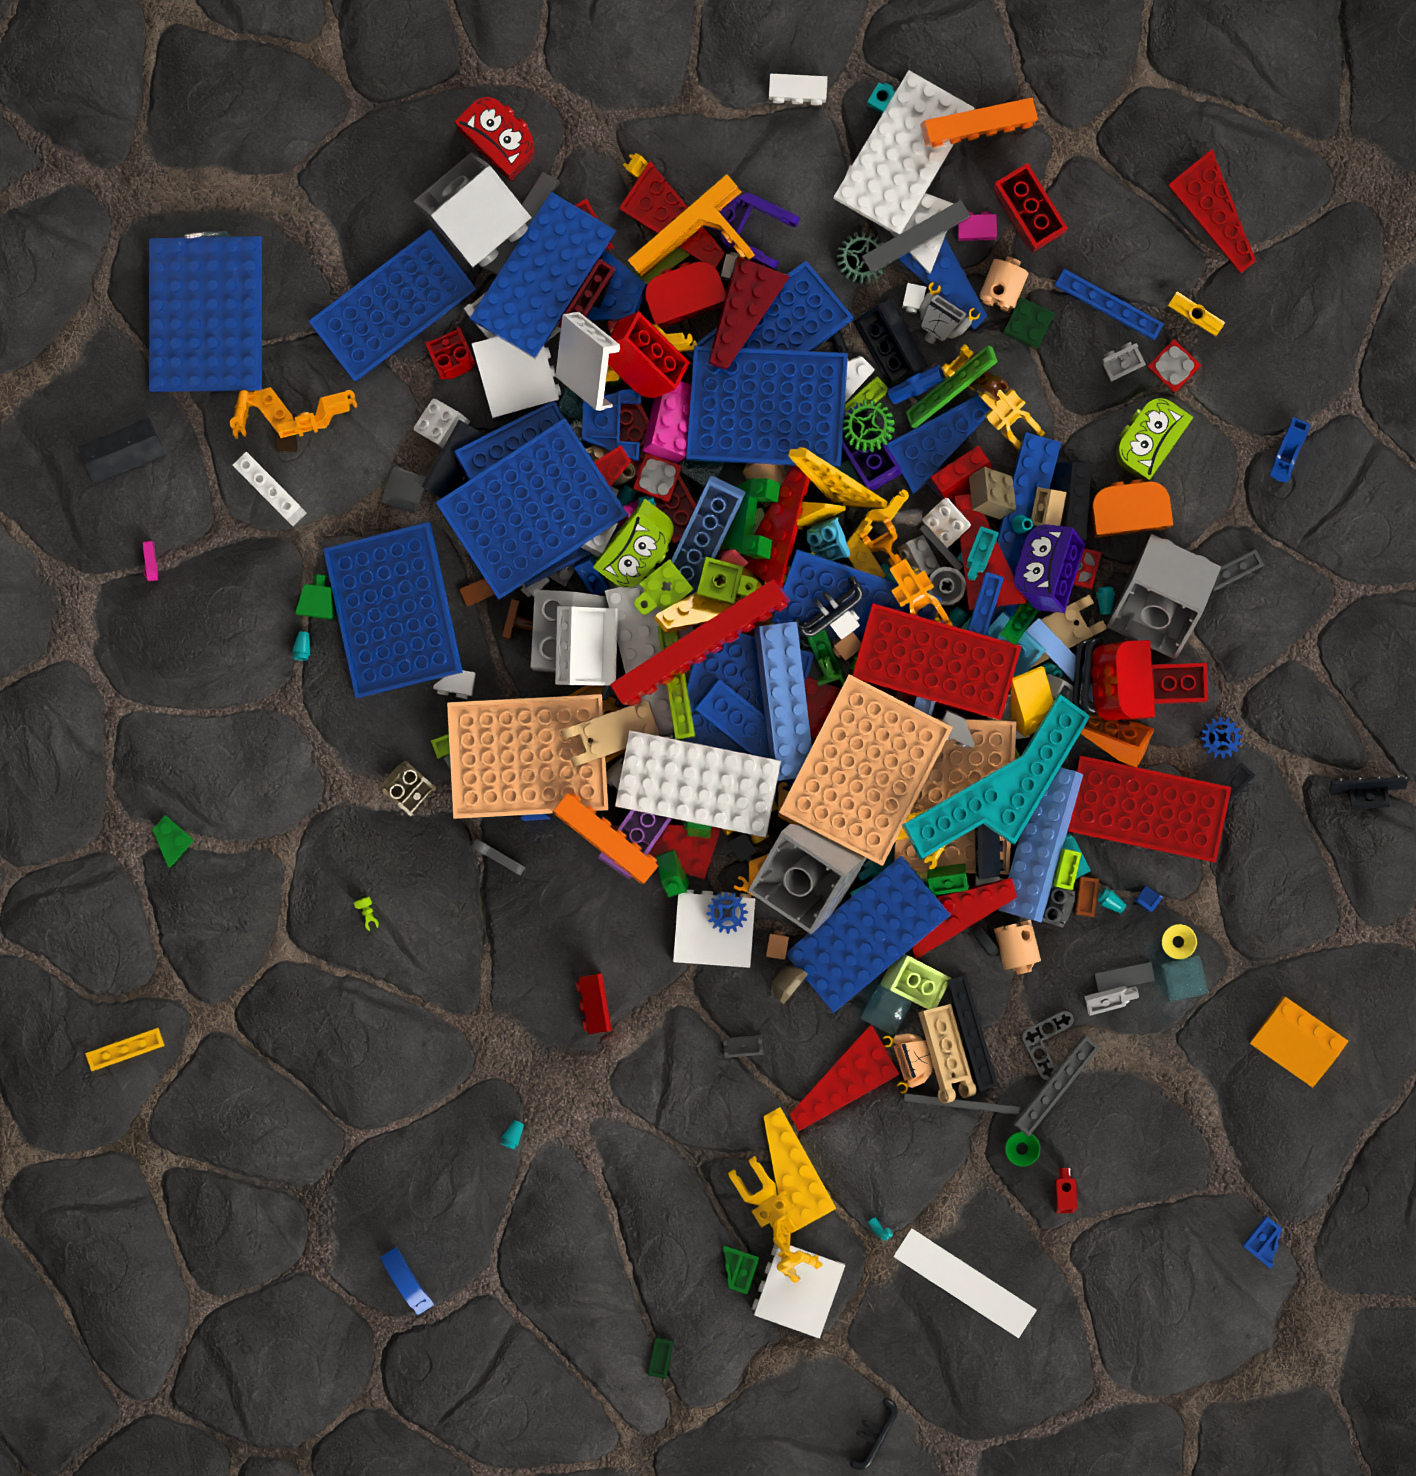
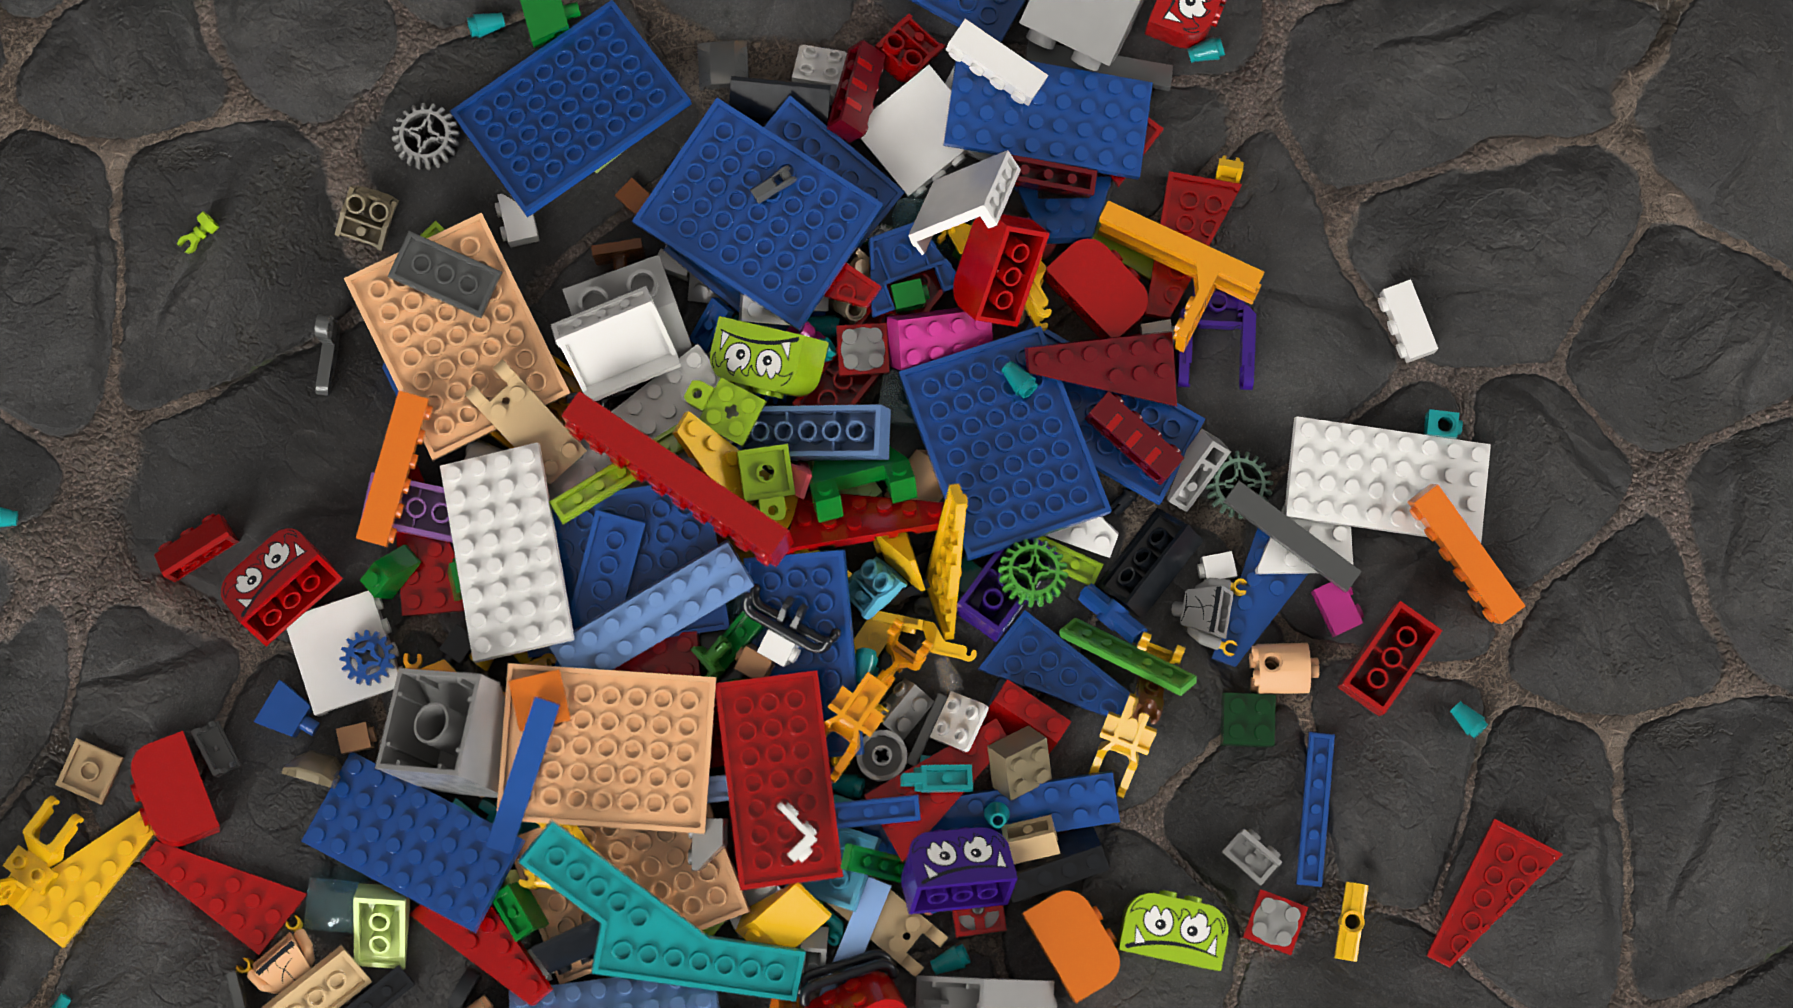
camera: 65 degrees right, 5 degrees down
(380, 732) = (416, 132): none -> light grey gear
(469, 403) = (856, 91): none -> dark red brick
(481, 746) = (445, 274): none -> dark grey tile
(494, 295) = (996, 62): none -> white brick
(518, 493) = (769, 187): none -> dark grey bar
(542, 142) = (1207, 50): none -> teal cone
(634, 428) = (909, 295): none -> green brick
(648, 954) = (278, 584): none -> red brick
(720, 1141) = (89, 771): none -> tan tile
(728, 377) = (1019, 379): none -> teal cone
(739, 986) = (287, 712): none -> blue torso
(762, 1087) = (172, 792): none -> red brick
(801, 315) = (1134, 437): none -> dark red brick
(814, 801) = (542, 685): none -> orange tile
(839, 281) = (1197, 469): none -> light grey slope
(861, 833) = (523, 775): none -> blue tile
(879, 569) = (865, 662): none -> teal cone
(992, 663) = (802, 849): none -> white bracket
(1093, 171) = (1469, 720): none -> teal cone

